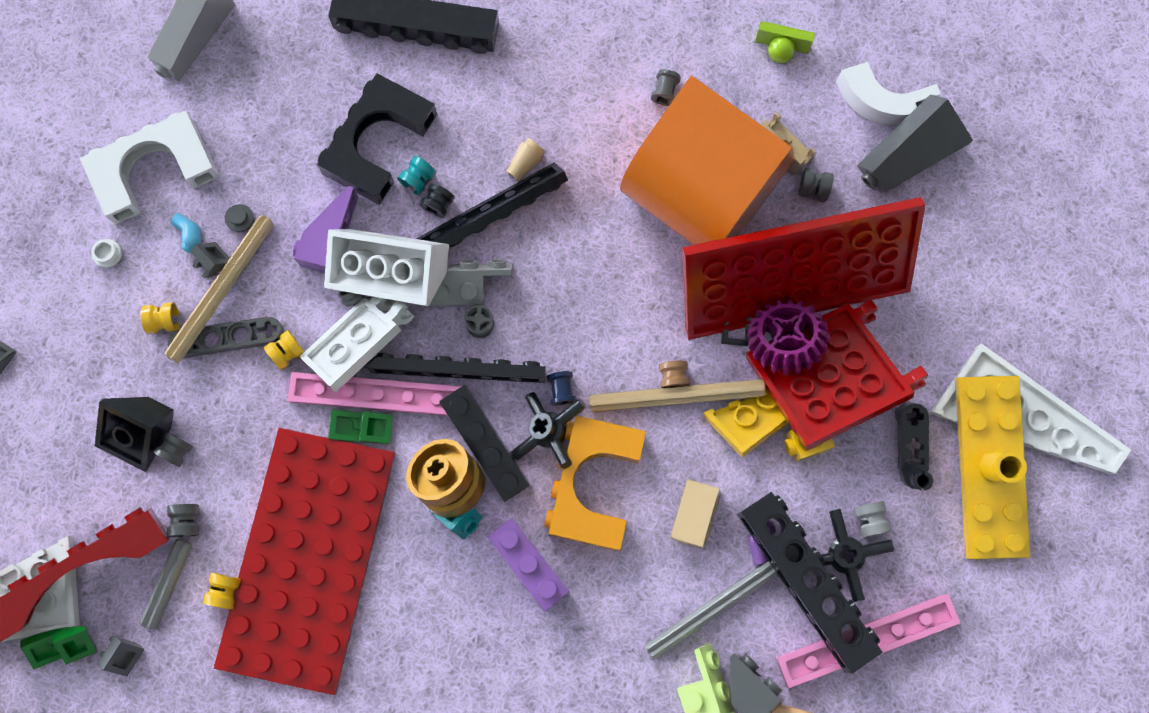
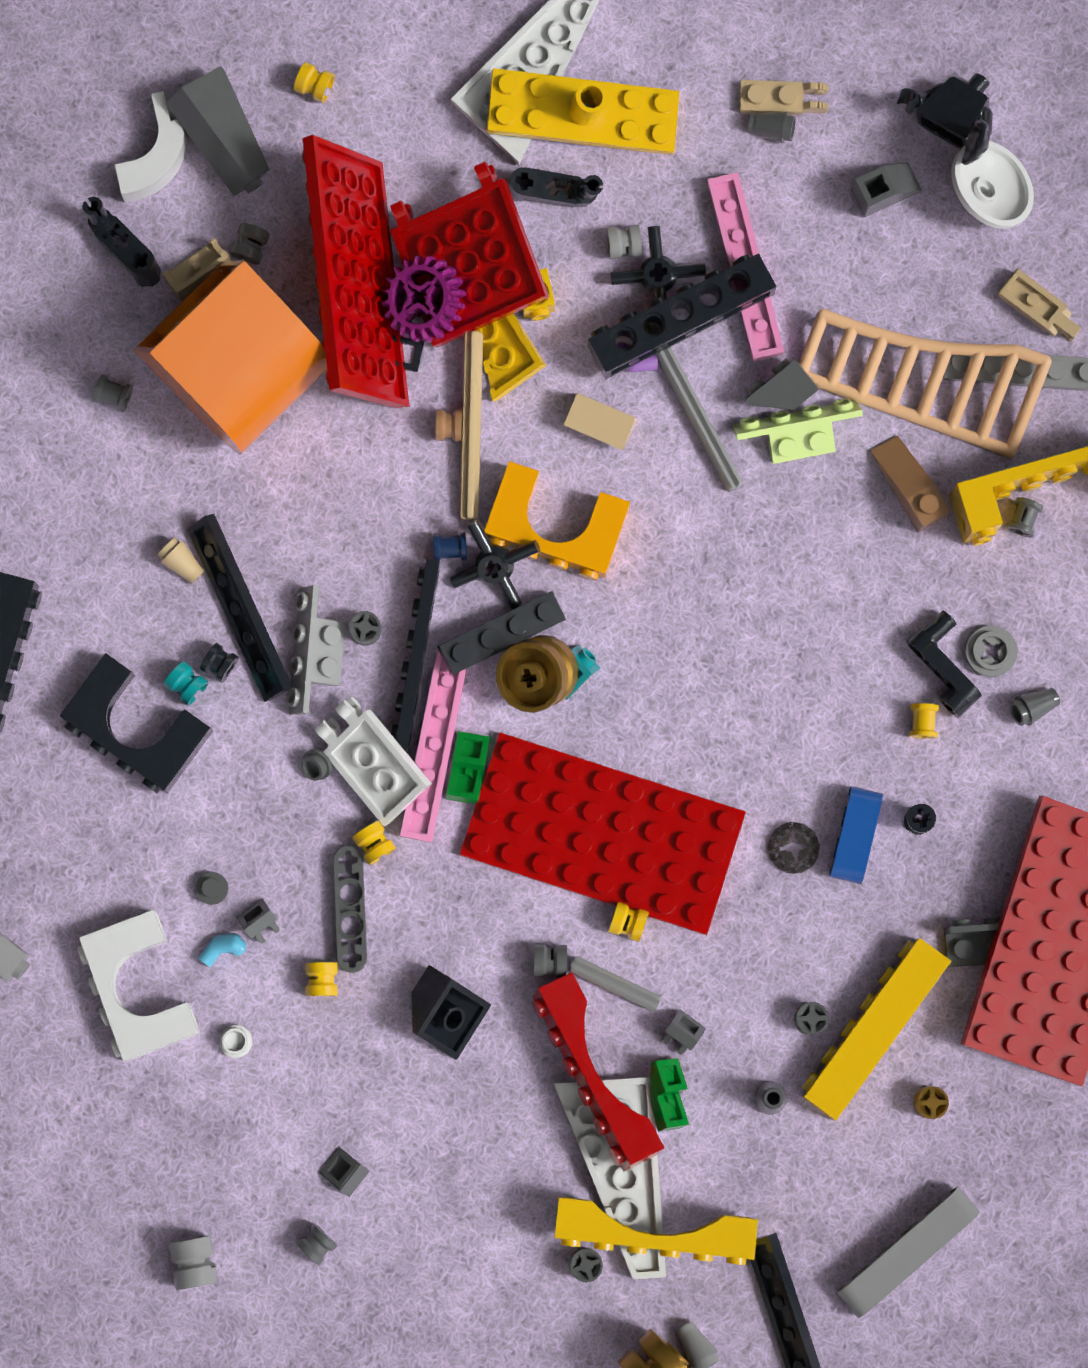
camera: 85 degrees left, 5 degrees up
(173, 449) = (471, 969): dark grey wheel -> none
(219, 289) = (294, 910): tan axle -> none
(312, 247) = (251, 792): medium lavender slope -> none
(385, 265) = (296, 719): white slope -> none
(528, 564) = (634, 597): medium lavender arch -> none
(783, 41) = (73, 253): lime tile -> none
(788, 89) = (134, 255): none -> black beam
(973, 220) = (312, 81): none -> yellow wheel
(1013, 654) = (773, 125): none -> dark grey cone
(1043, 660) = (781, 96): none -> tan hinge

